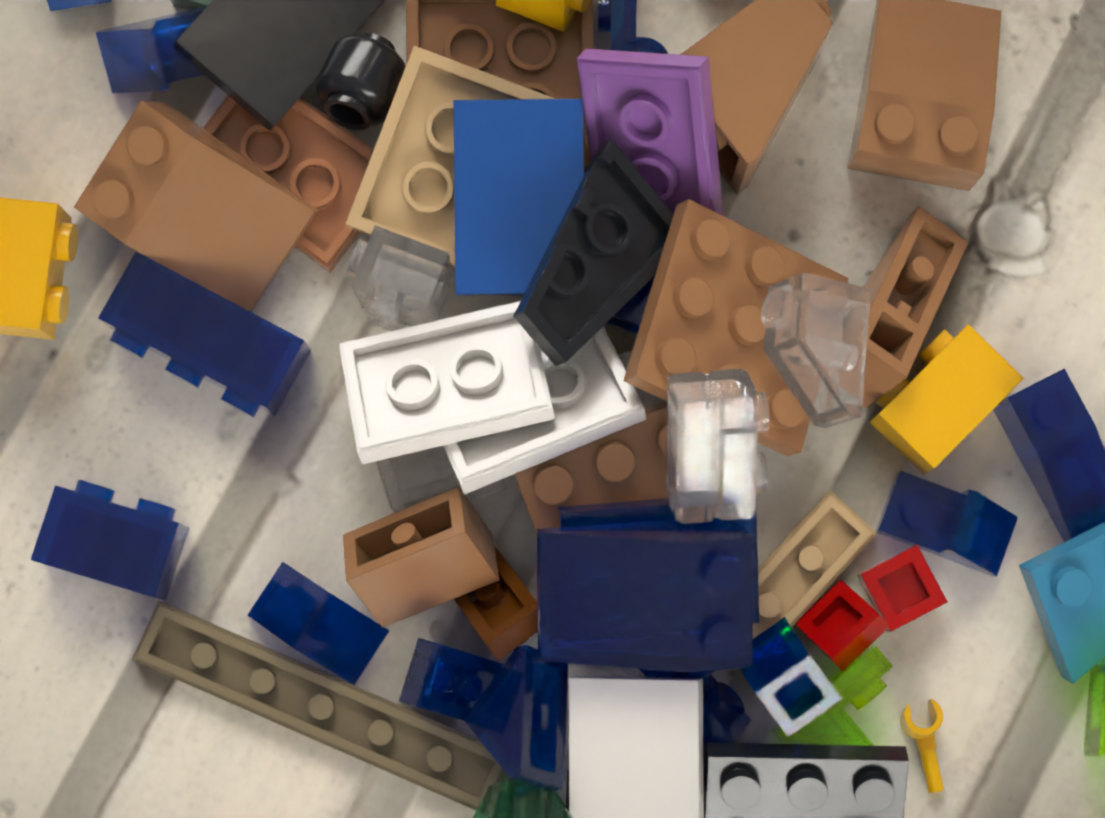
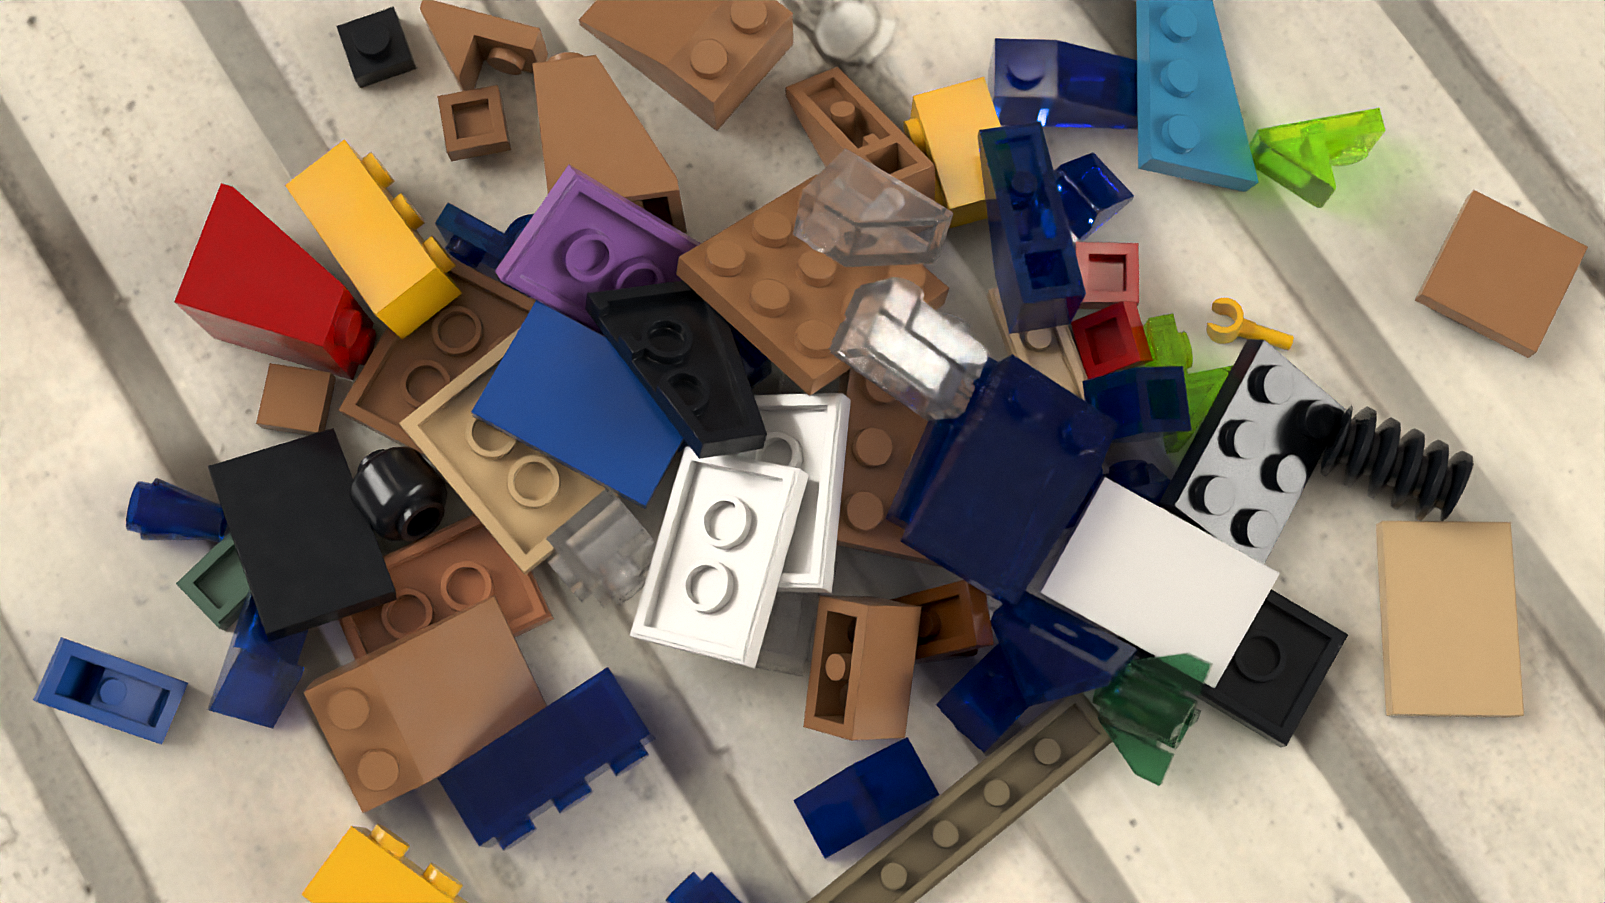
camera: 60 degrees left, 5 degrees down
(898, 492) = (1028, 229): none -> clear blue slope

